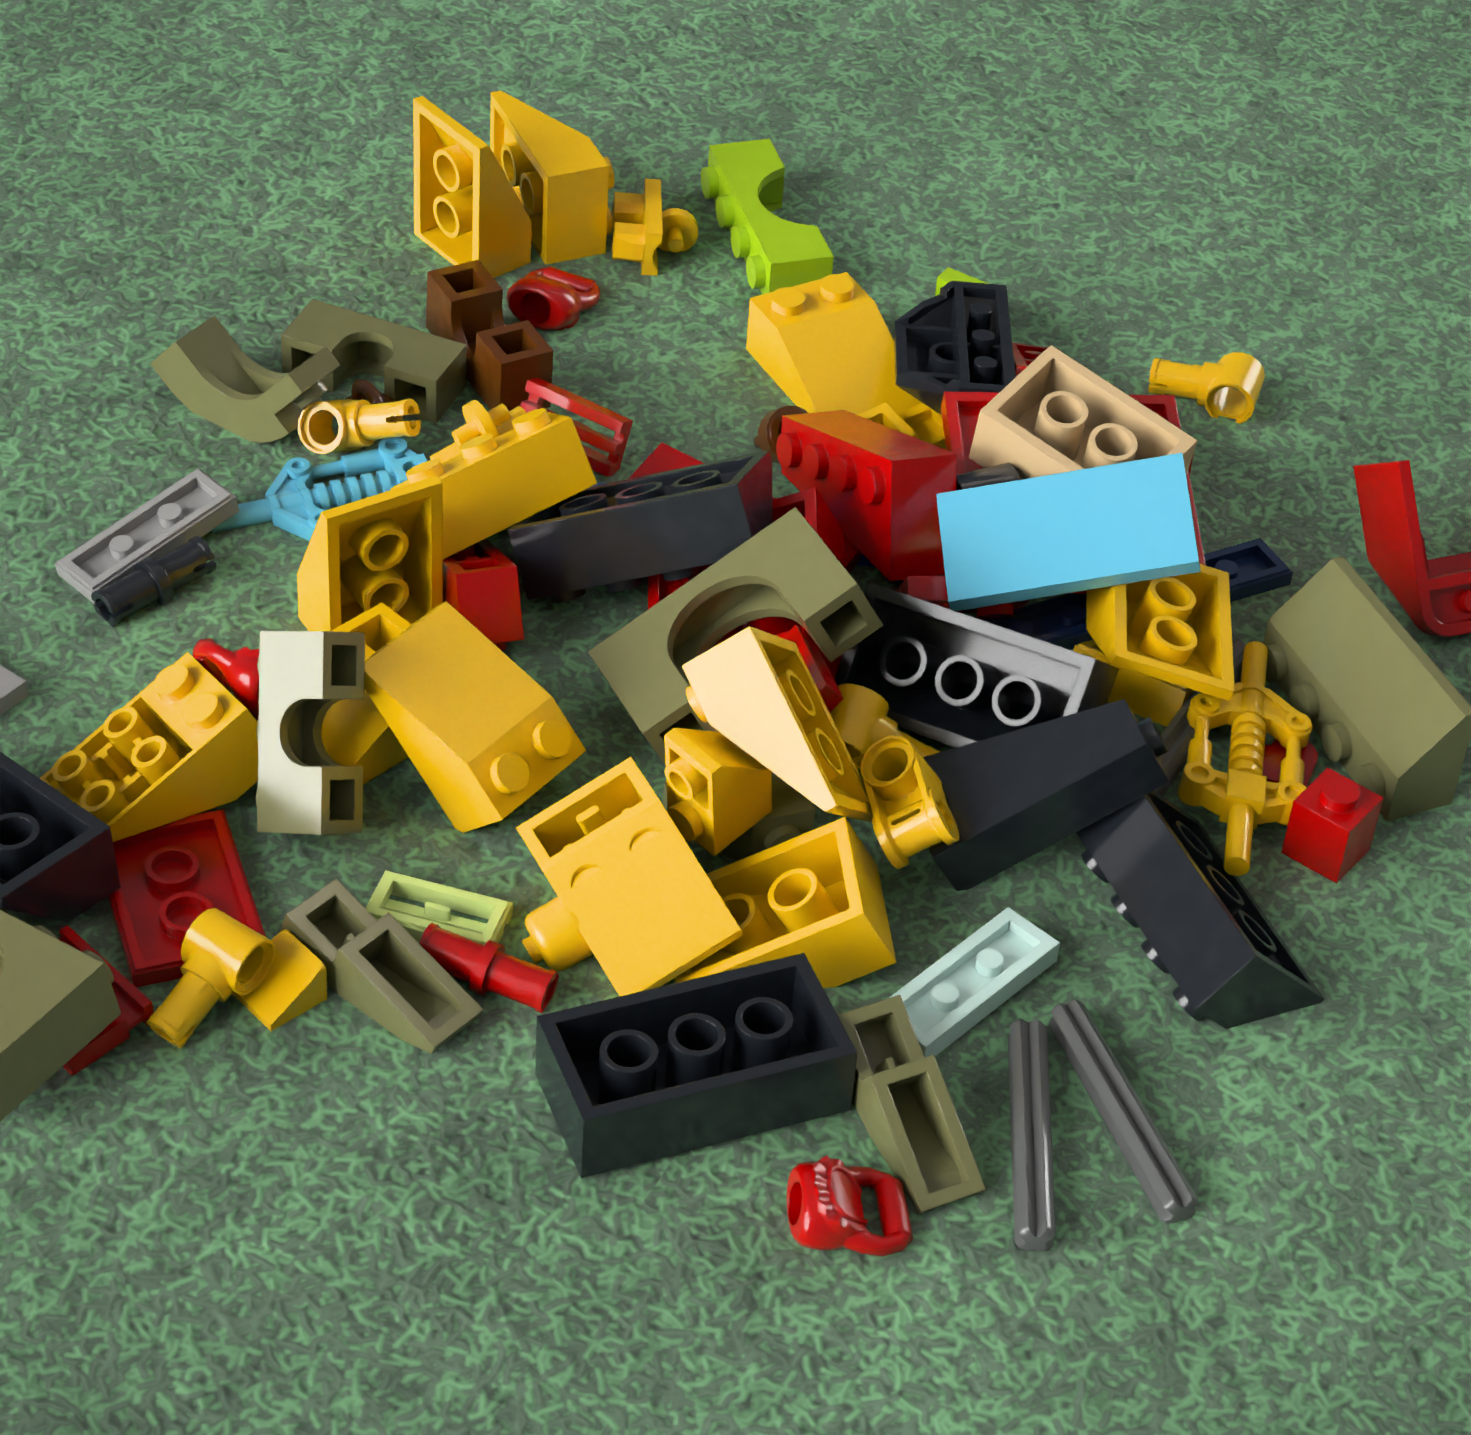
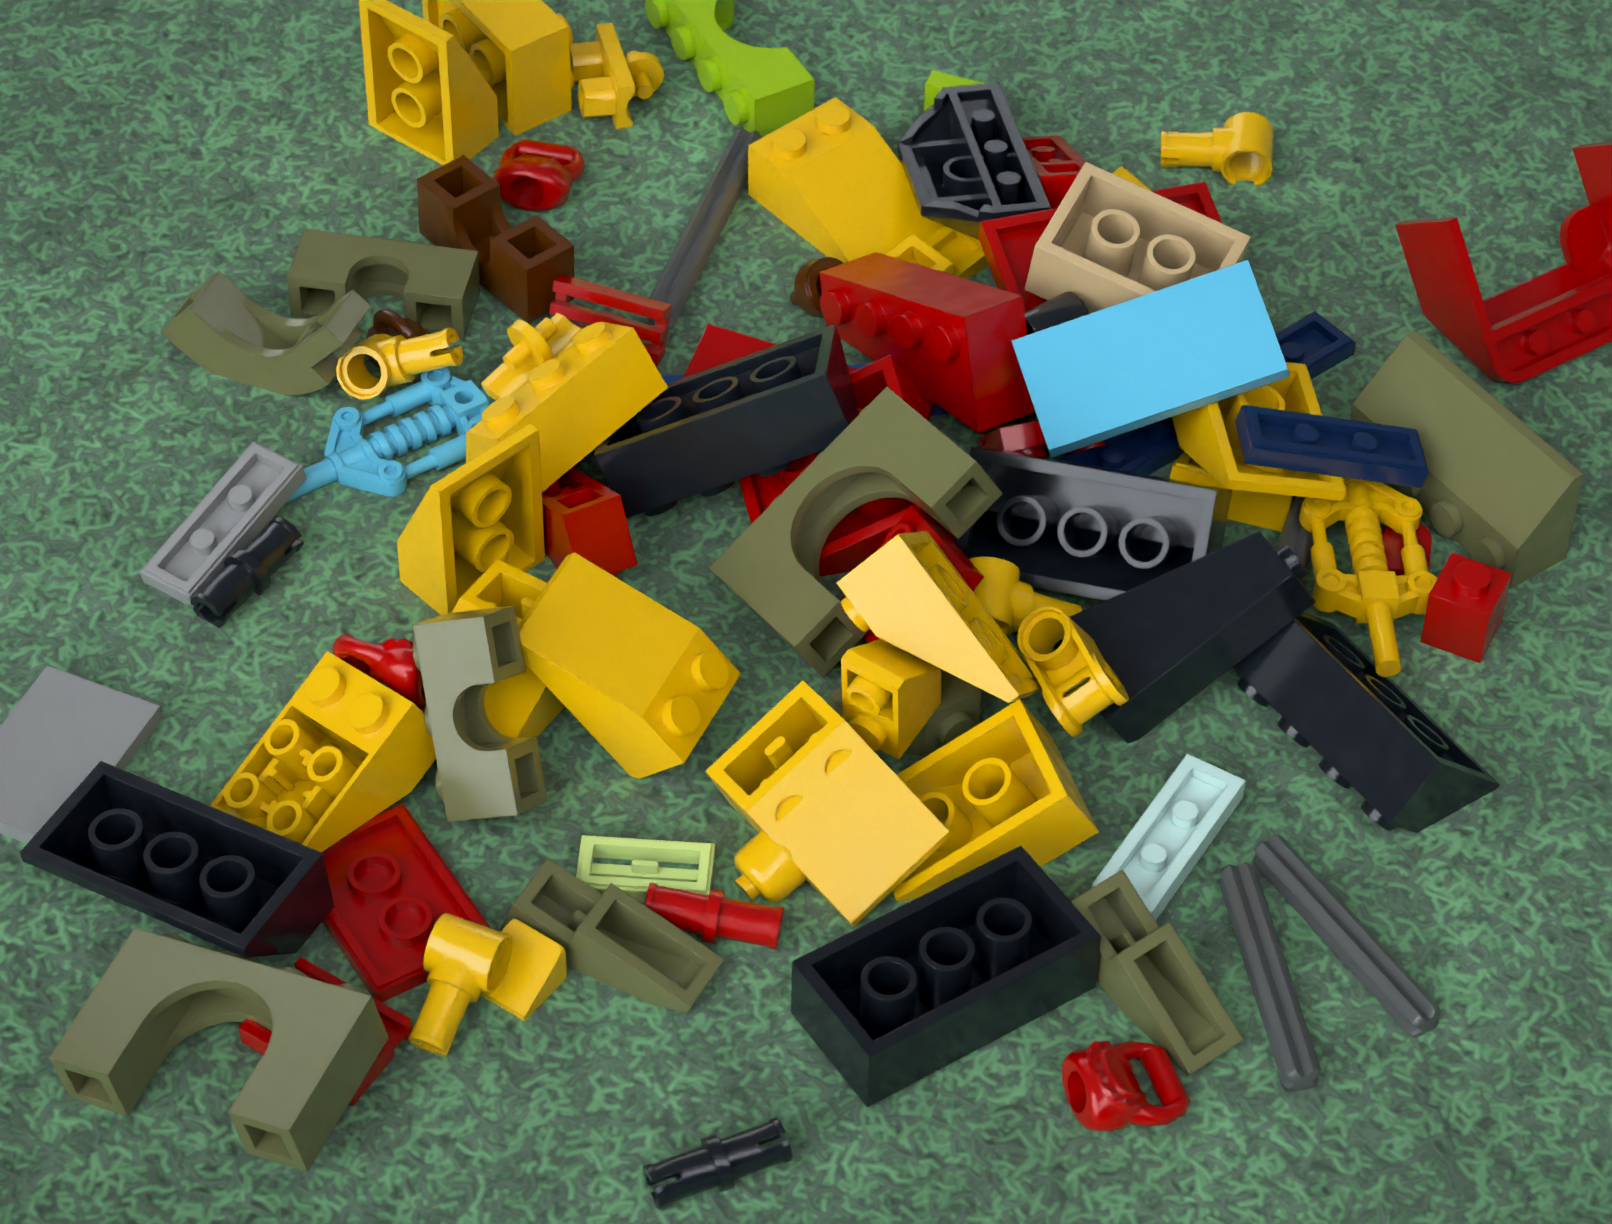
camera: 10 degrees left, 5 degrees up
(409, 1199) = (717, 1162): none -> black pin
(688, 372) = (704, 226): none -> dark grey axle
(1230, 646) = (1331, 446): none -> dark blue tile

